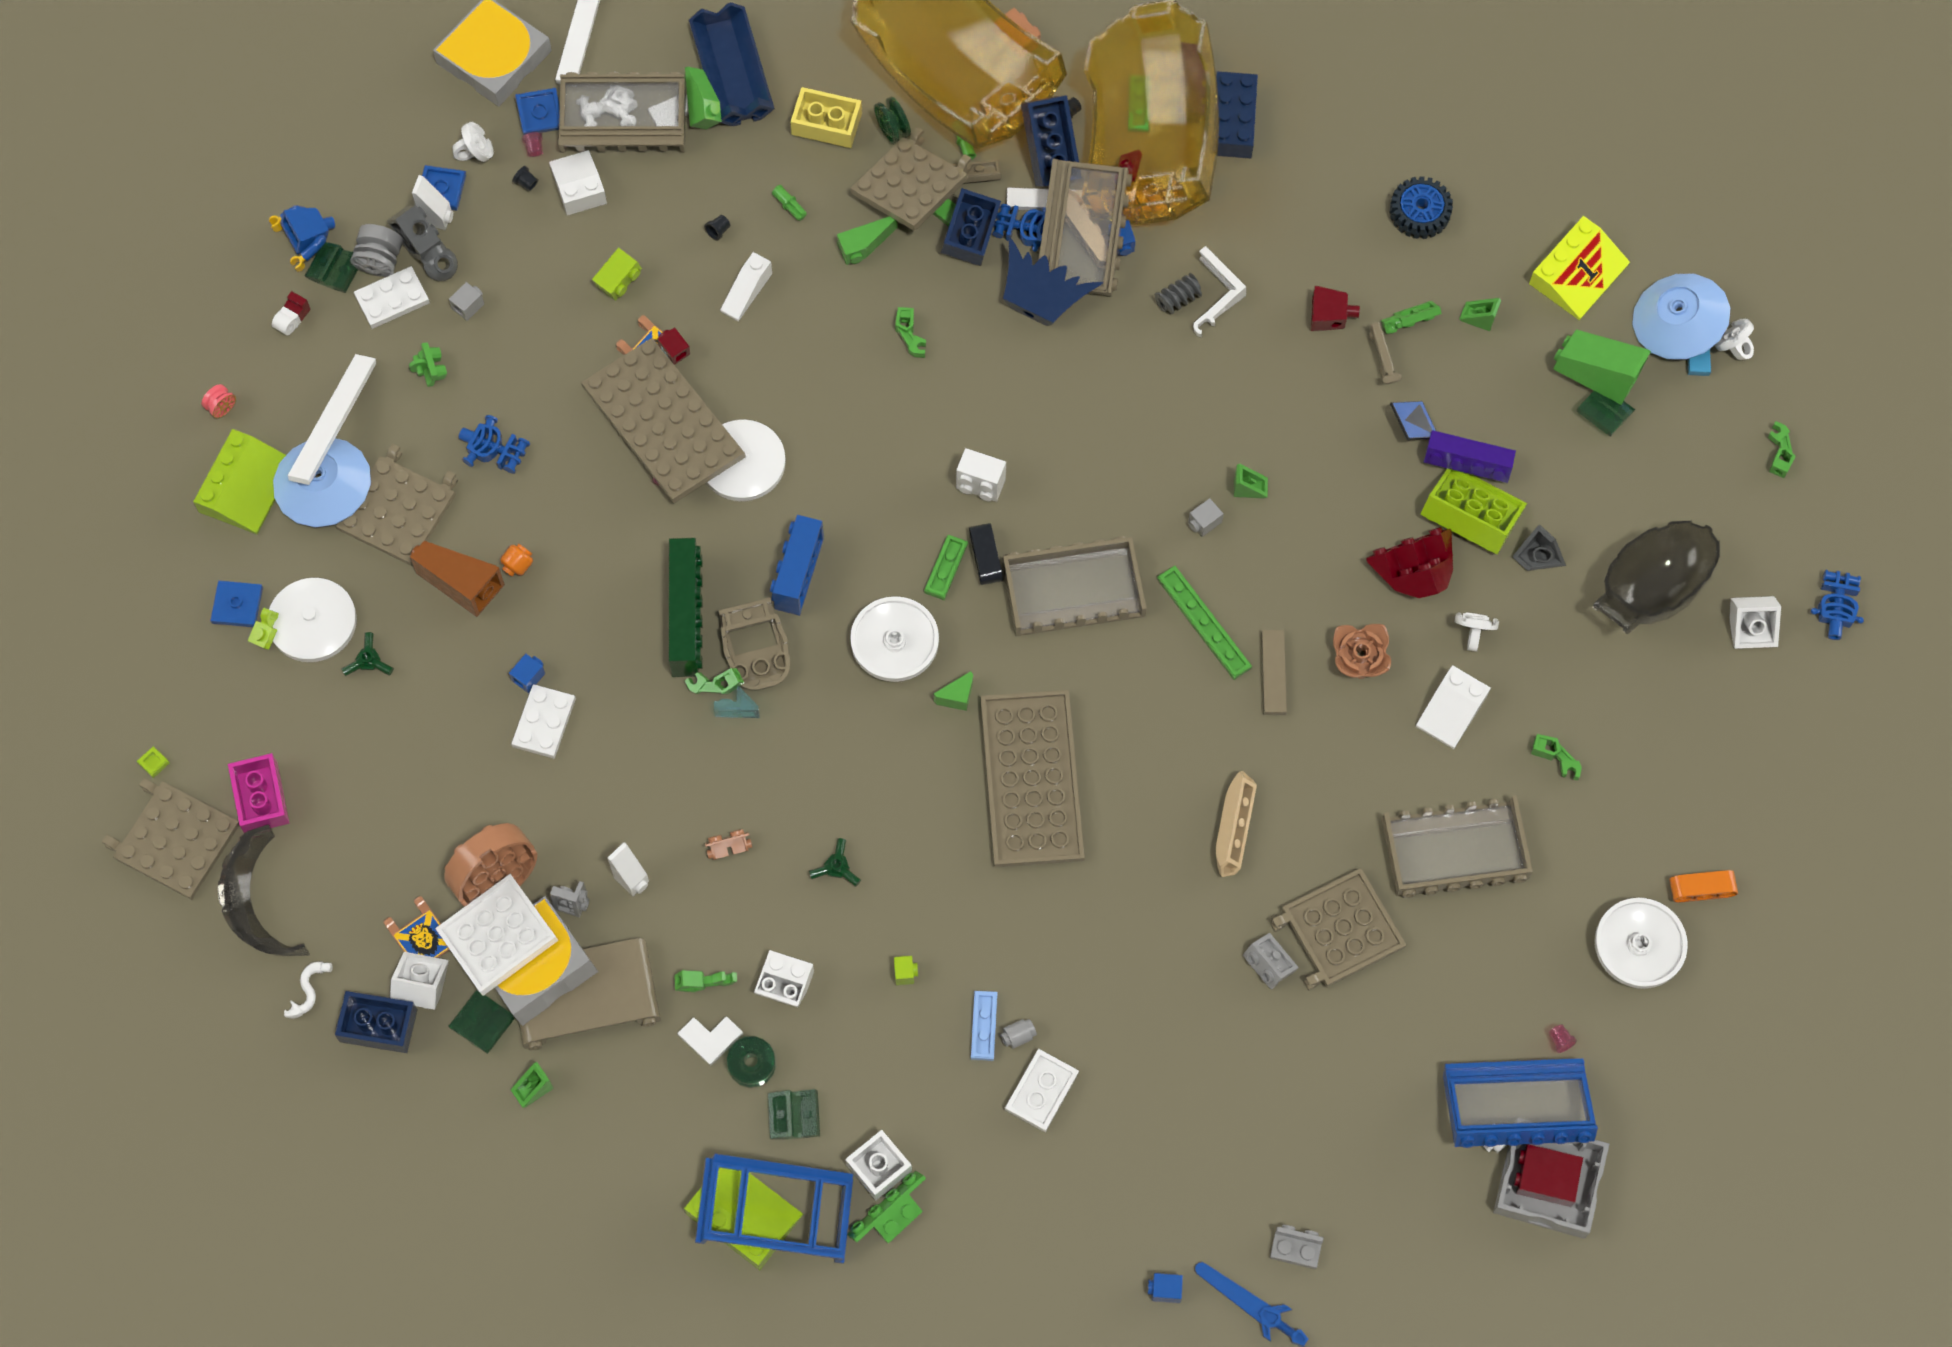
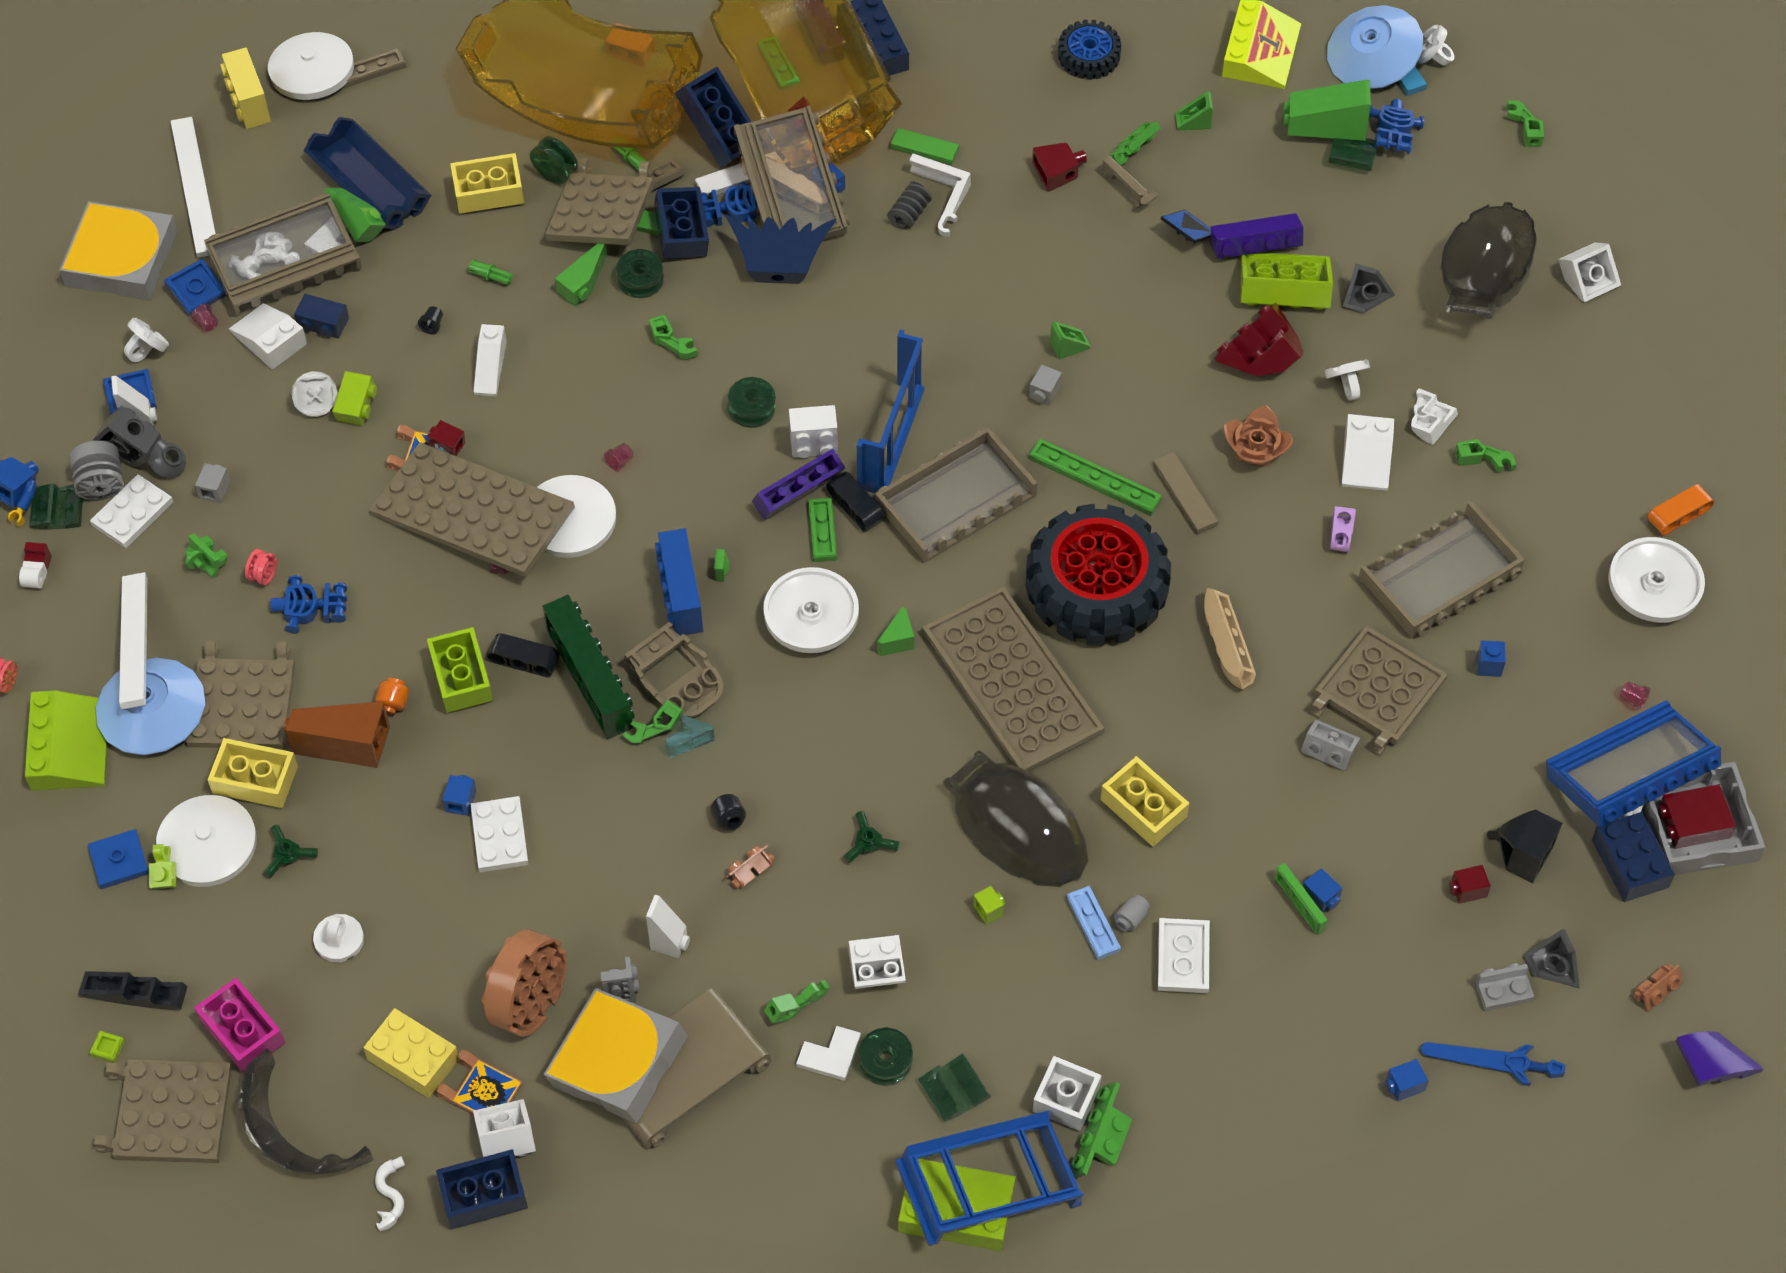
camera: 25 degrees left, 10 degrees down
(194, 723) = (133, 991): none -> black slope
(372, 579) = (253, 773): none -> light yellow brick
(373, 753) = (338, 938): none -> white tile
(379, 880) = (411, 1053): none -> light yellow brick
(468, 397) = (261, 567): none -> coral wheel
(482, 1022) = (590, 1142): clear green slope -> none
(496, 934) = (566, 1044): white plate -> none
(525, 178) = (213, 351): black piece -> none
(531, 1086) = (676, 1177): bright green slope -> none
(580, 562) = (459, 669): none -> lime brick
(585, 256) = (314, 394): none -> white tile
(628, 184) = (321, 316): none -> dark blue brick
(640, 571) = (523, 655): none -> black beam
(734, 788) = (728, 812): none -> black head
(809, 424) = (618, 456): none -> clear pink piece
(842, 563) = (721, 565): none -> bright green tile
(909, 248) = (640, 273): none -> clear green wheel
(944, 518) = (798, 484): none -> dark purple brick
(950, 411) = (747, 391): none -> clear green wheel
(969, 909) = (1019, 822): none -> clear smoke windscreen
(1008, 528) = (871, 455): none -> blue piece
(1081, 940) = (1144, 801): none -> light yellow brick
(1154, 757) = (1089, 537): none -> black wheel
(1166, 1087) = (1301, 899): none -> bright green tile
(1188, 1089) = (1323, 890): none -> blue brick
(1224, 240) = (924, 146): none -> bright green tile
(1317, 1142) = (1470, 884): none -> dark red brick
(1351, 1244) = (1555, 960): none -> dark grey slope
(1385, 1130) = (1526, 842): none -> black piece
(1390, 769) = (1342, 529): none -> lavender leg
(1439, 1307) = (1666, 980): none -> nougat hinge
(1452, 948) = (1491, 658): none -> blue brick
(1472, 1185) = (1633, 857): none -> dark blue brick
(1530, 697) = (1431, 416): none -> white slope
(1657, 400) = (1395, 126): none -> blue piece
(1842, 609) = (1653, 229): blue torso -> none

